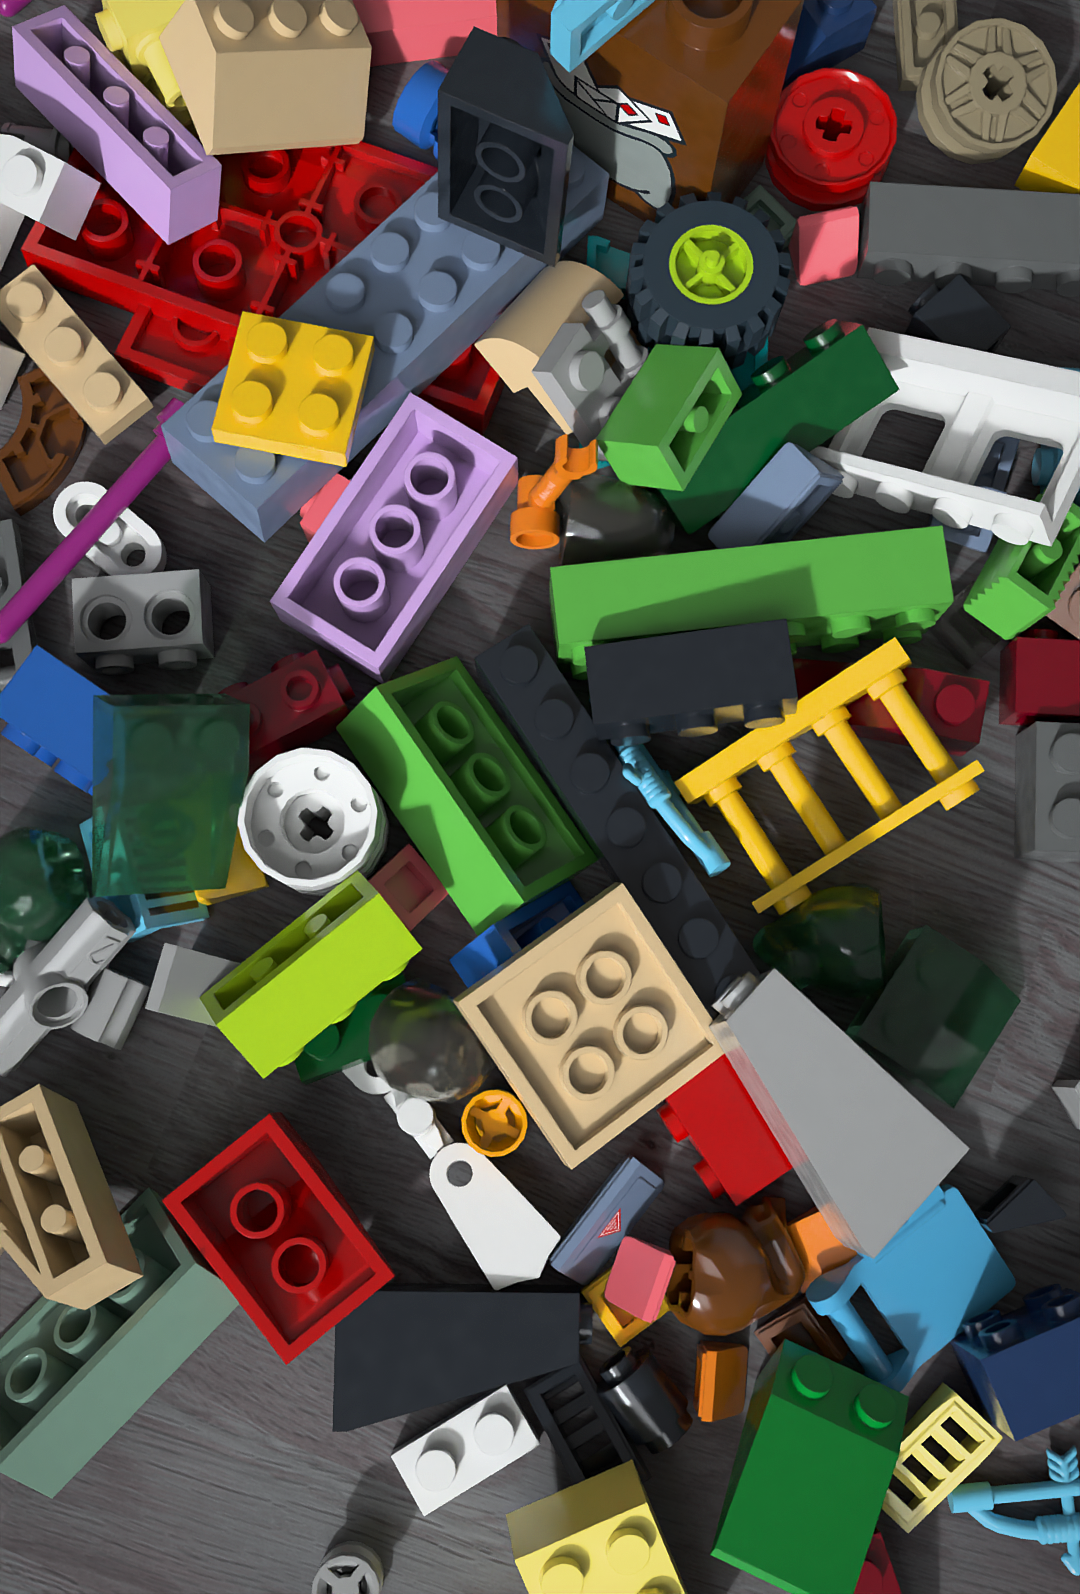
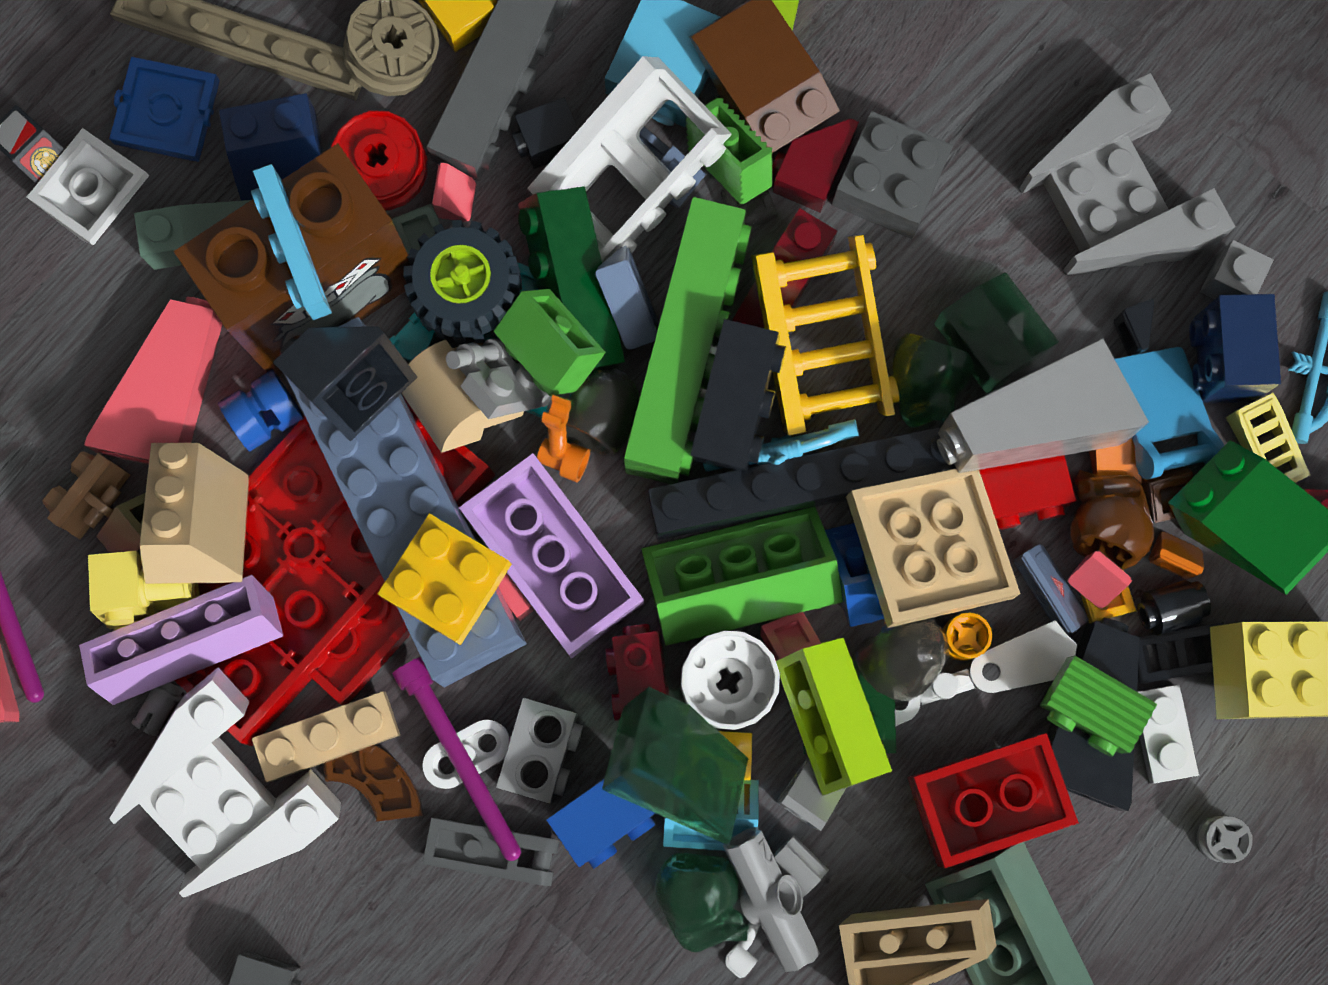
camera: 70 degrees left, 0 degrees up
(455, 1336) = (1097, 706): none -> bright green brick

